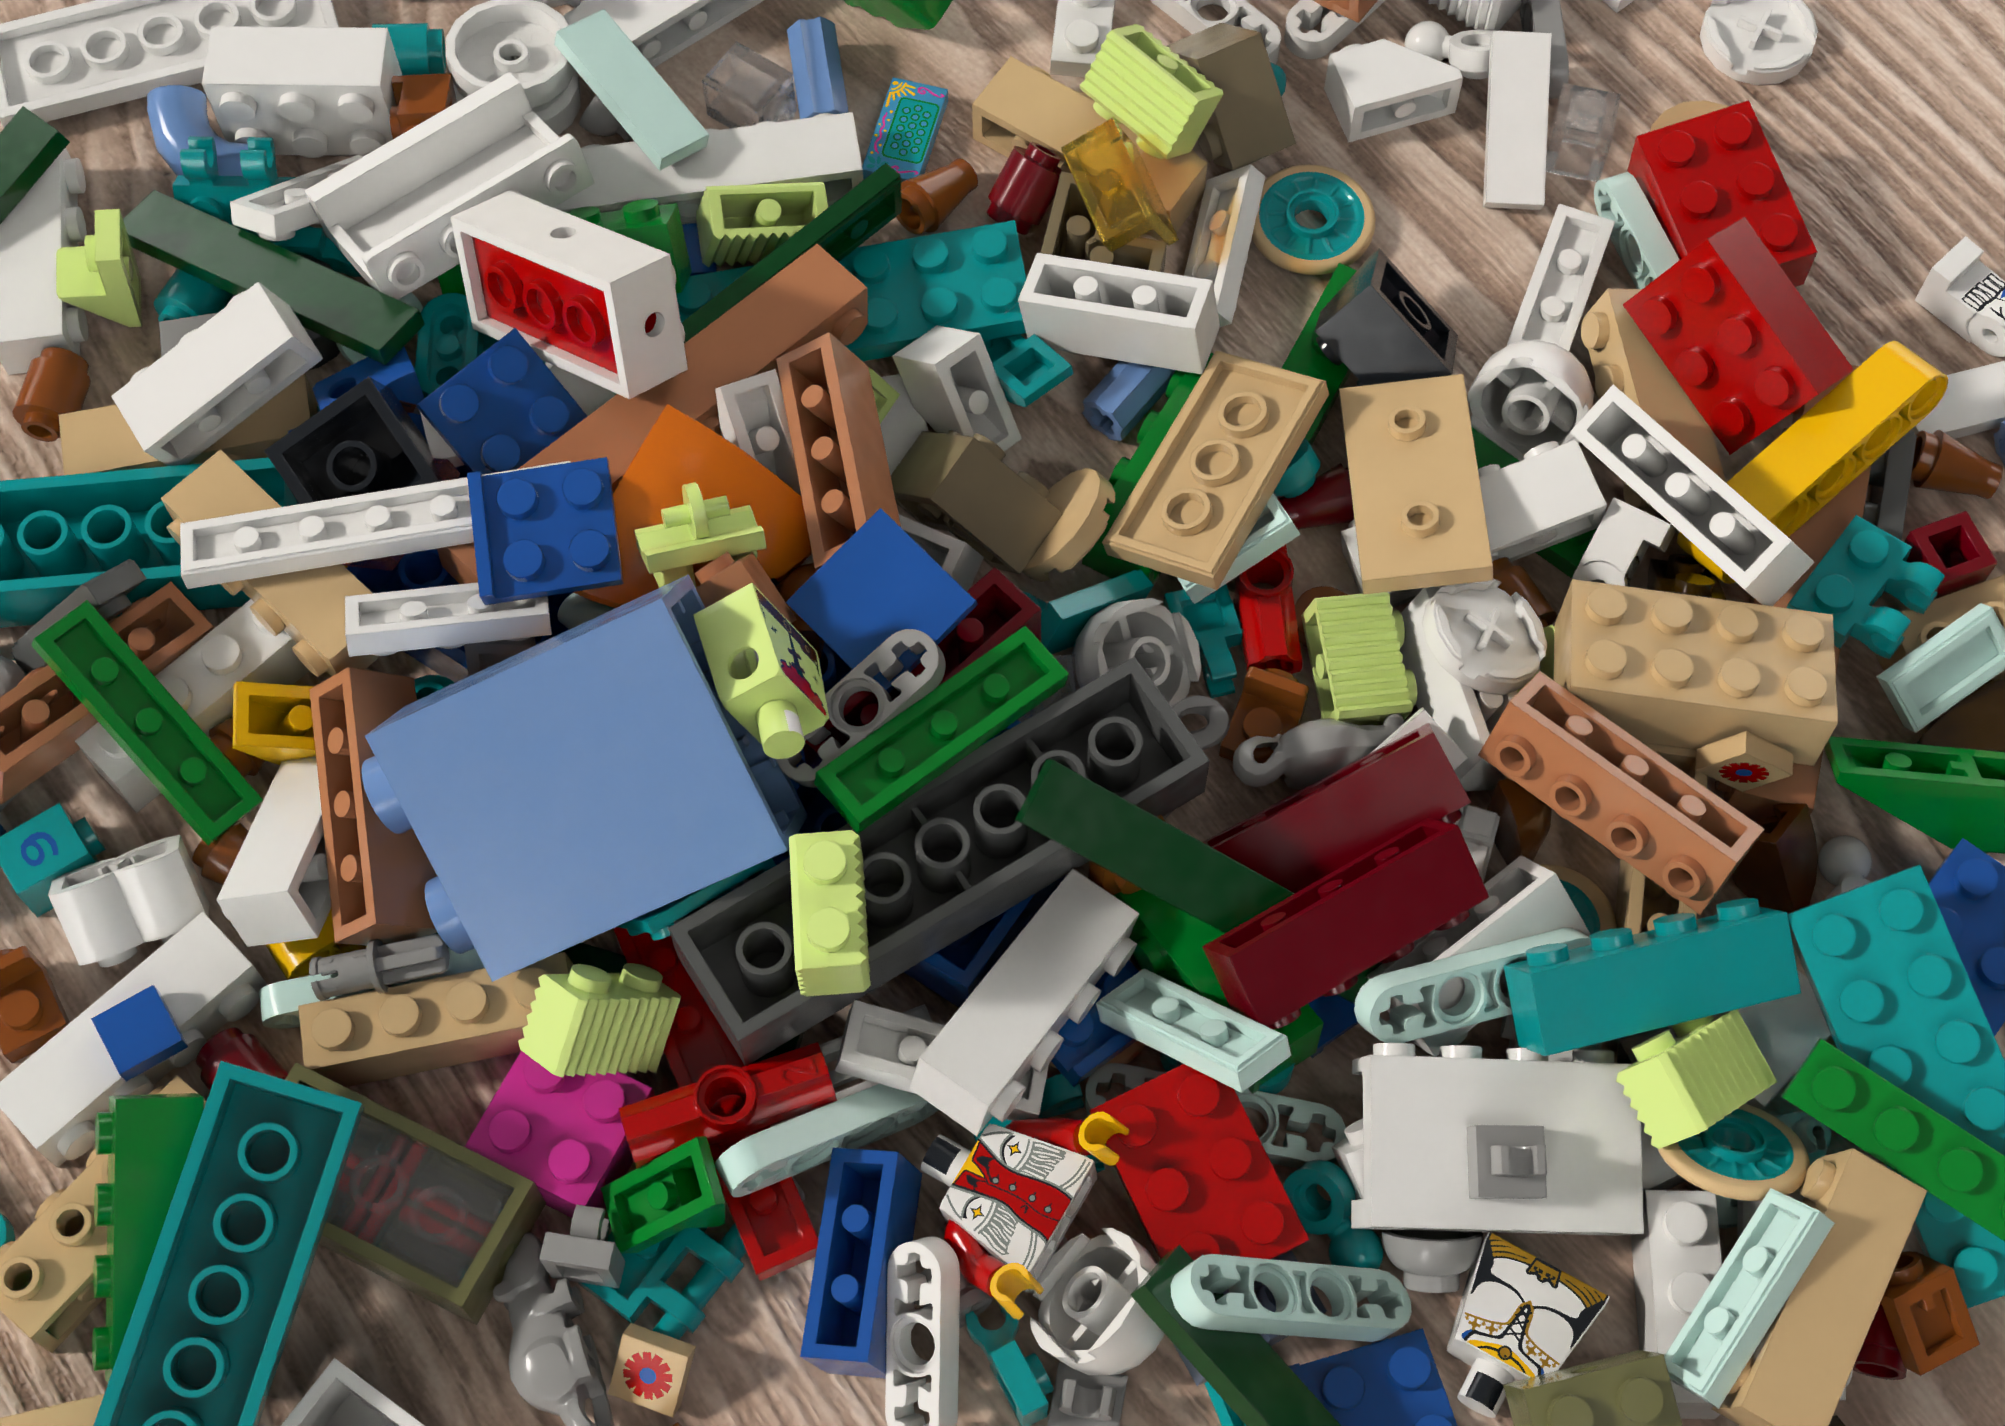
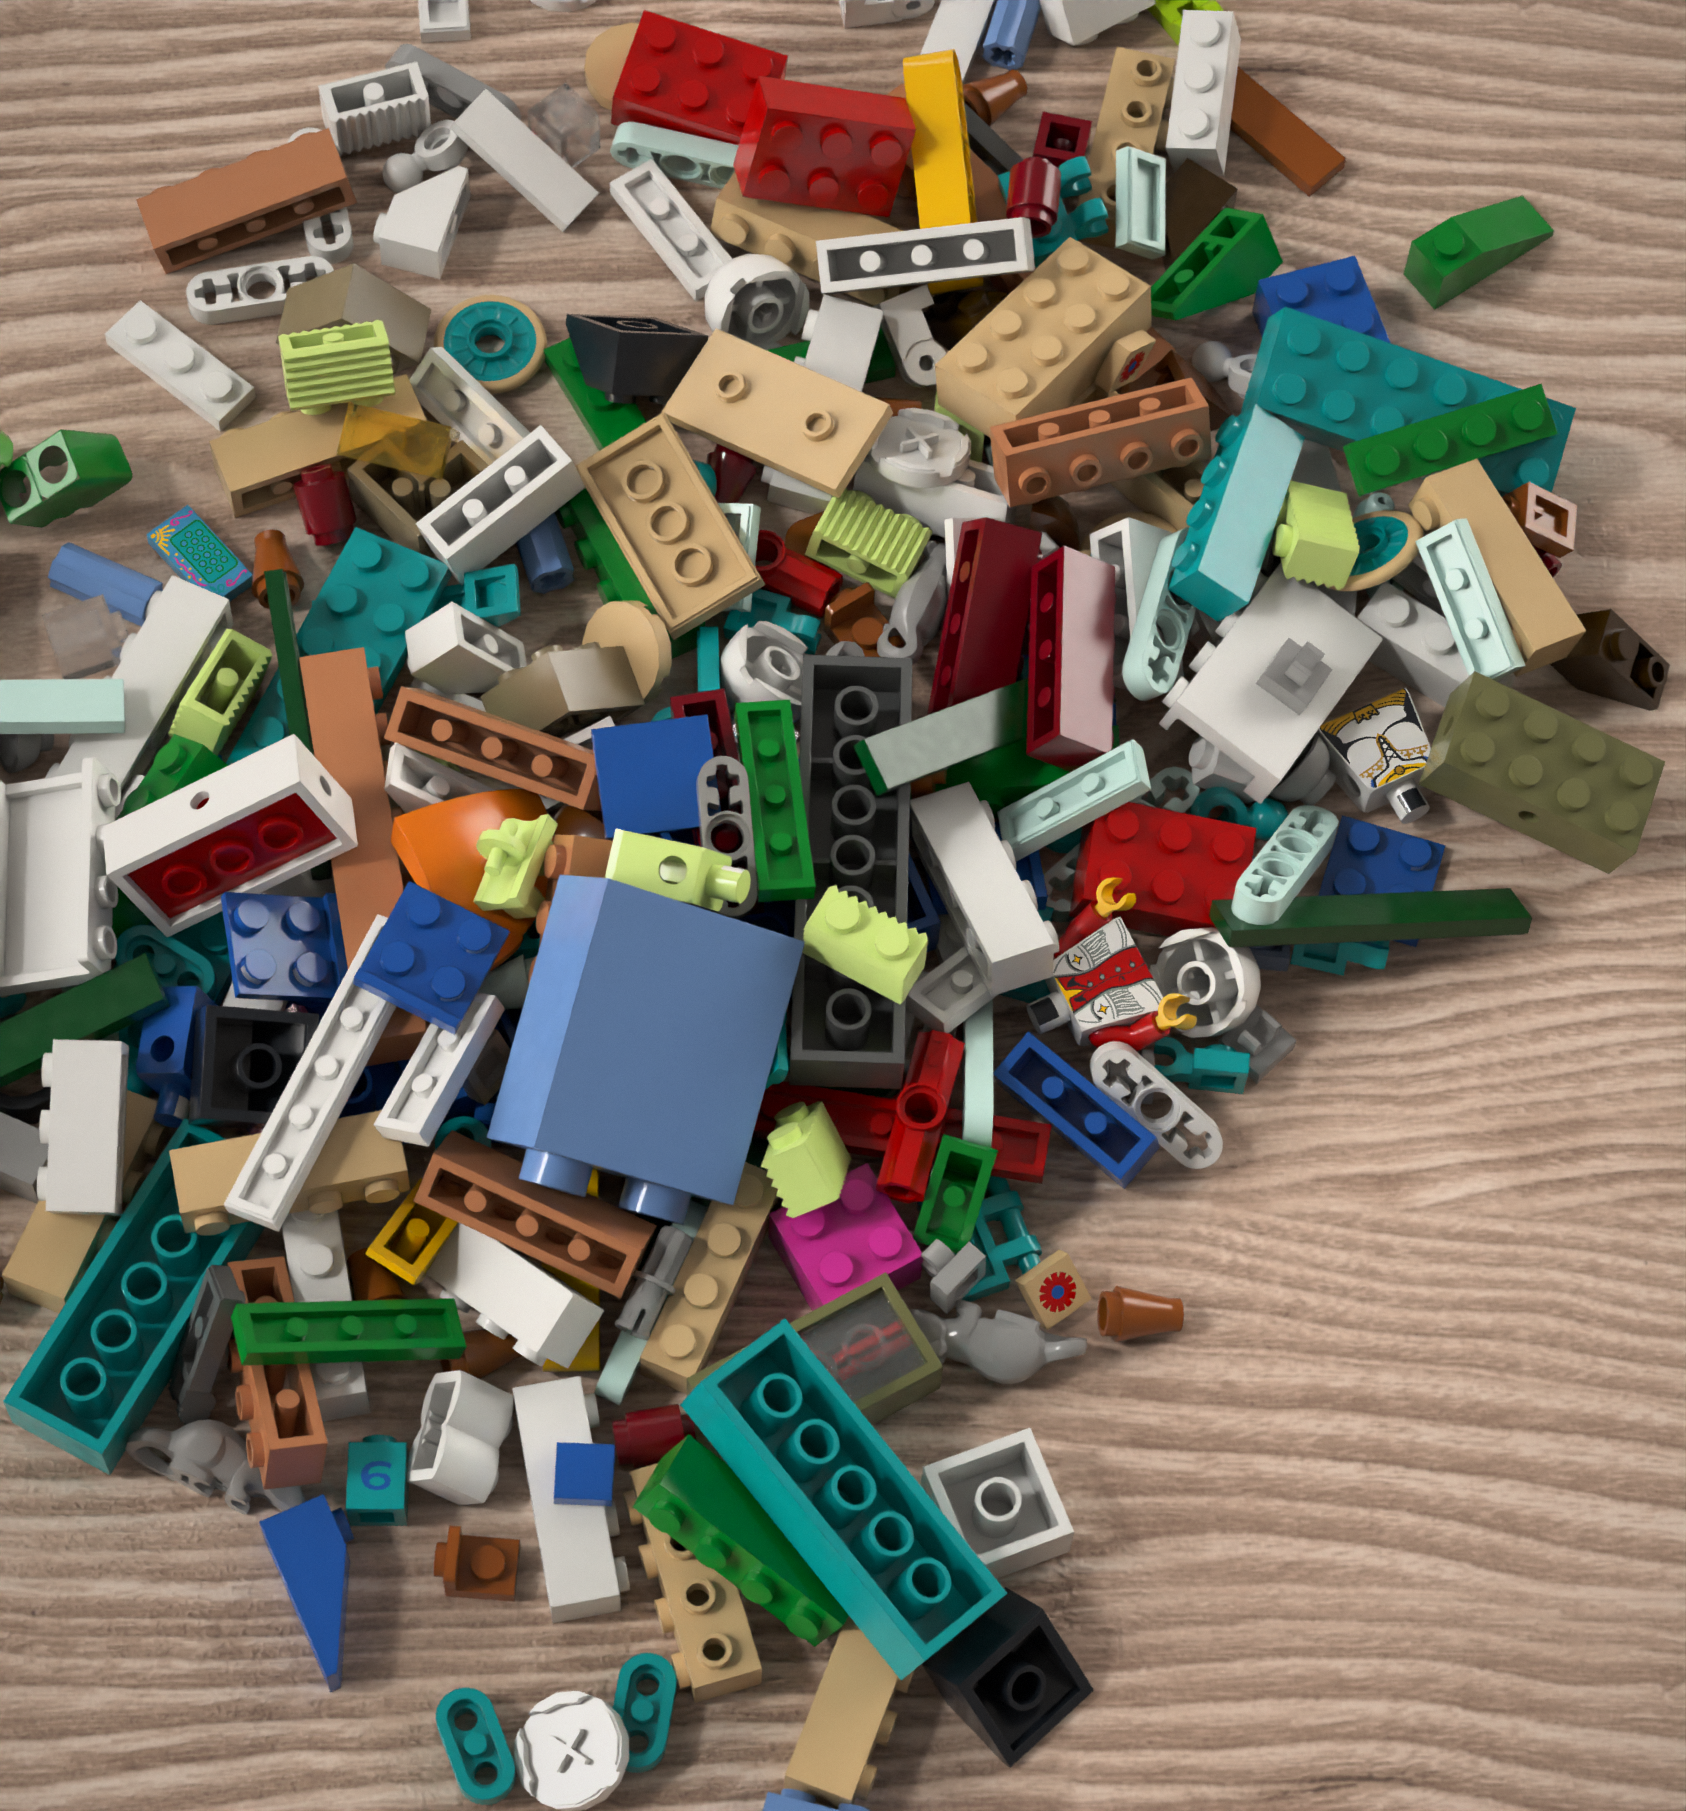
camera: 60 degrees left, 0 degrees up
(1850, 553) = (1034, 194): none -> dark red brick

